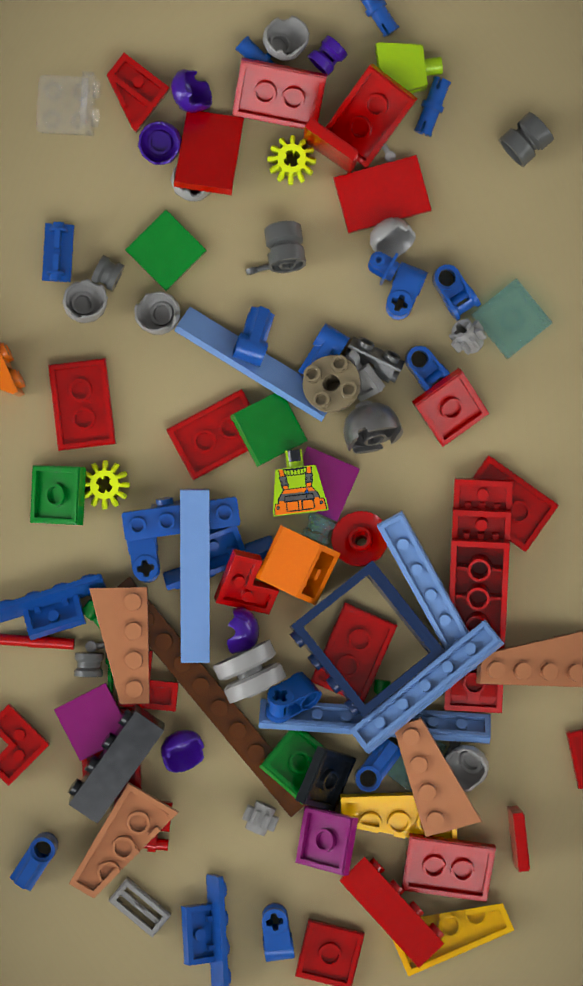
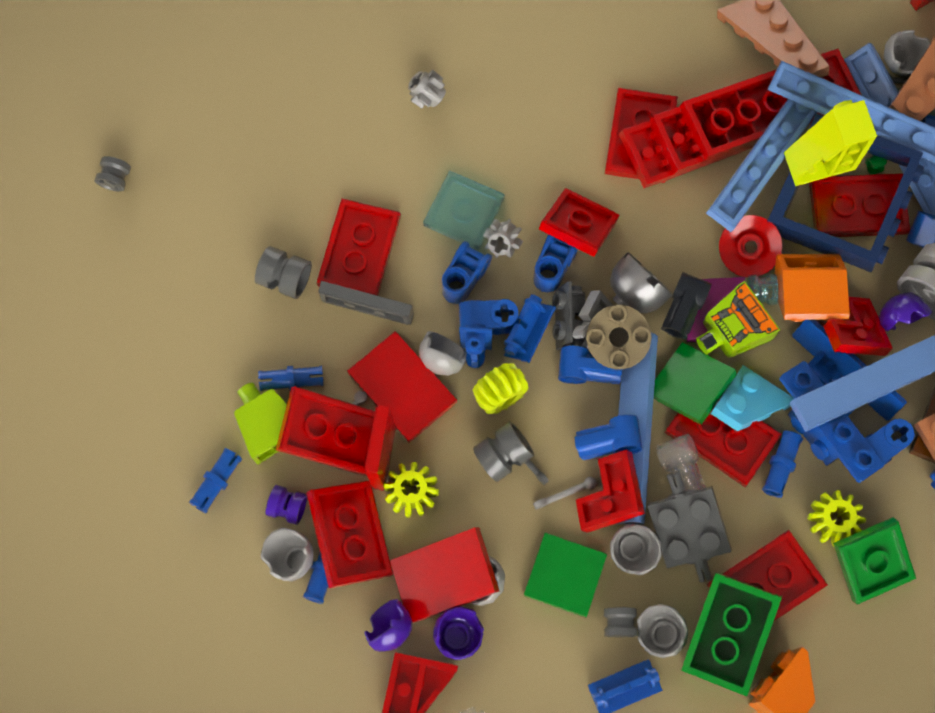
camera: 115 degrees left, 15 degrees down
(56, 350) = (731, 634): none -> green brick
(153, 363) = (689, 527): none -> dark grey plate
(168, 466) = (782, 464): none -> blue pin
(204, 321) = (619, 497): none -> red plate
(211, 385) = (682, 456): none -> clear piece
(229, 307) = (589, 483): none -> light grey hinge
(232, 466) = (749, 400): none -> medium azure wing
(338, 269) = (500, 388): none -> neon yellow gear
(338, 460) = (687, 300): none -> black piece
(378, 321) = (528, 333): none -> blue hinge
(402, 631) = (832, 144): none -> neon yellow wedge
(466, 196) = (366, 303): none -> dark grey tile
(520, 214) = (359, 246): none -> red tile

